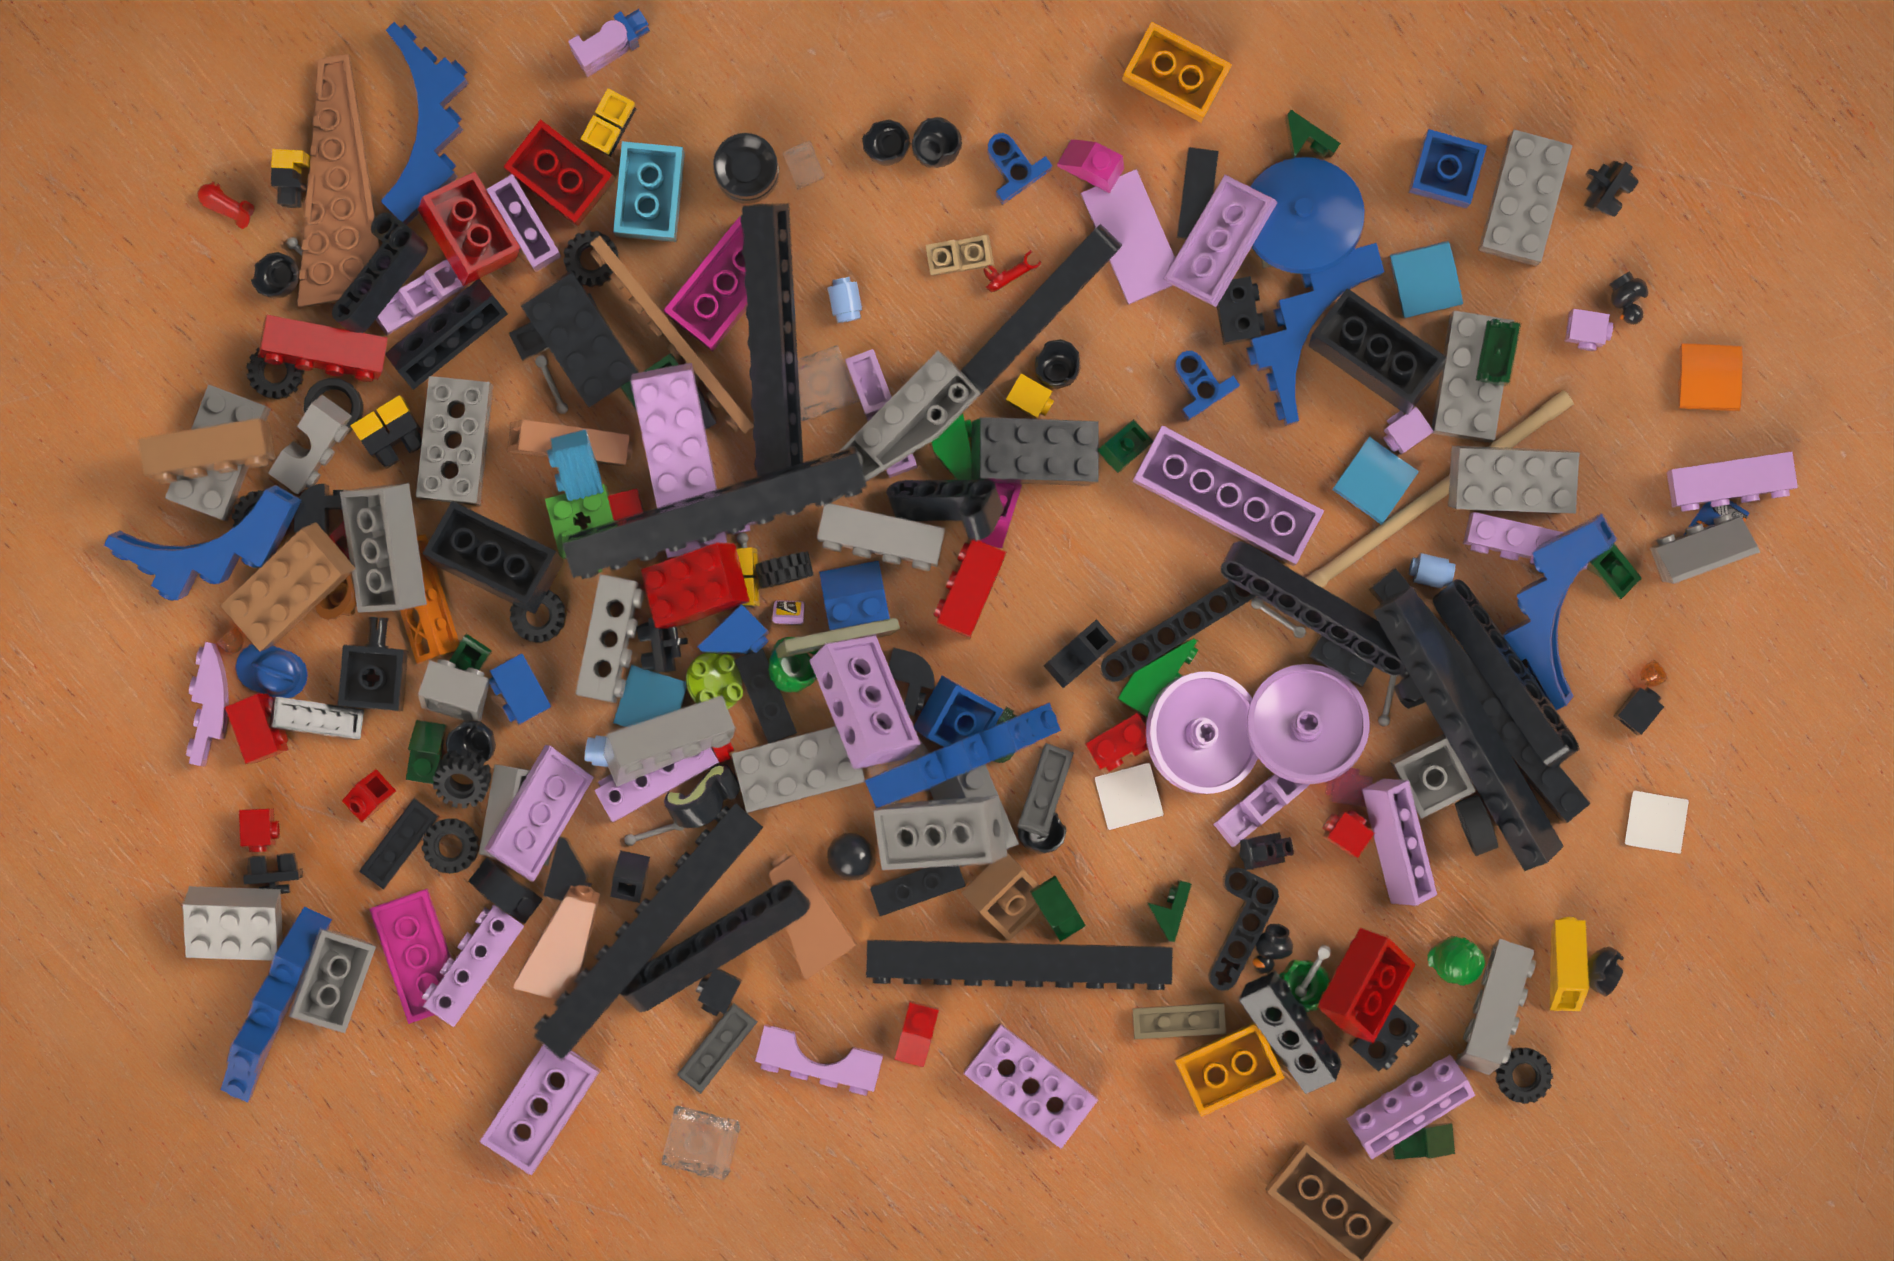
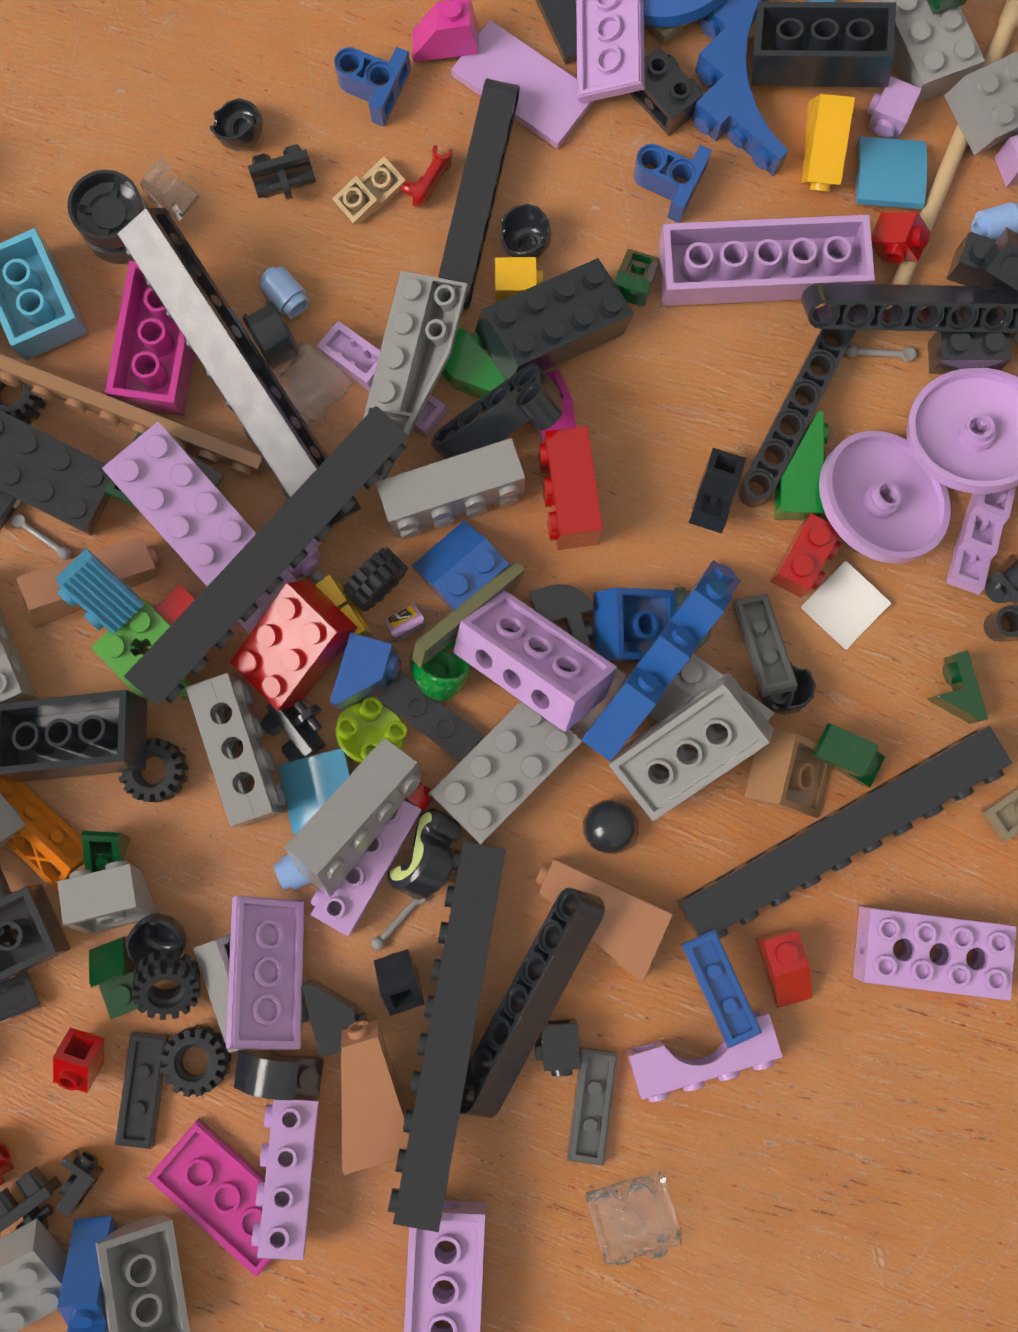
camera: 30 degrees left, 5 degrees down
(315, 885) = (84, 1176): none -> black bracket
(519, 689) = (174, 856): blue brick -> none
(814, 332) = (271, 335): none -> black animal
(858, 1017) = (721, 988): none -> blue tile
(898, 205) = (281, 173): none -> black hips
(916, 888) = (694, 820): black plate -> none
(936, 142) = (284, 94): black hair -> none
(1336, 427) = (826, 140): none -> yellow slope
(1343, 539) = (900, 237): none -> red brick

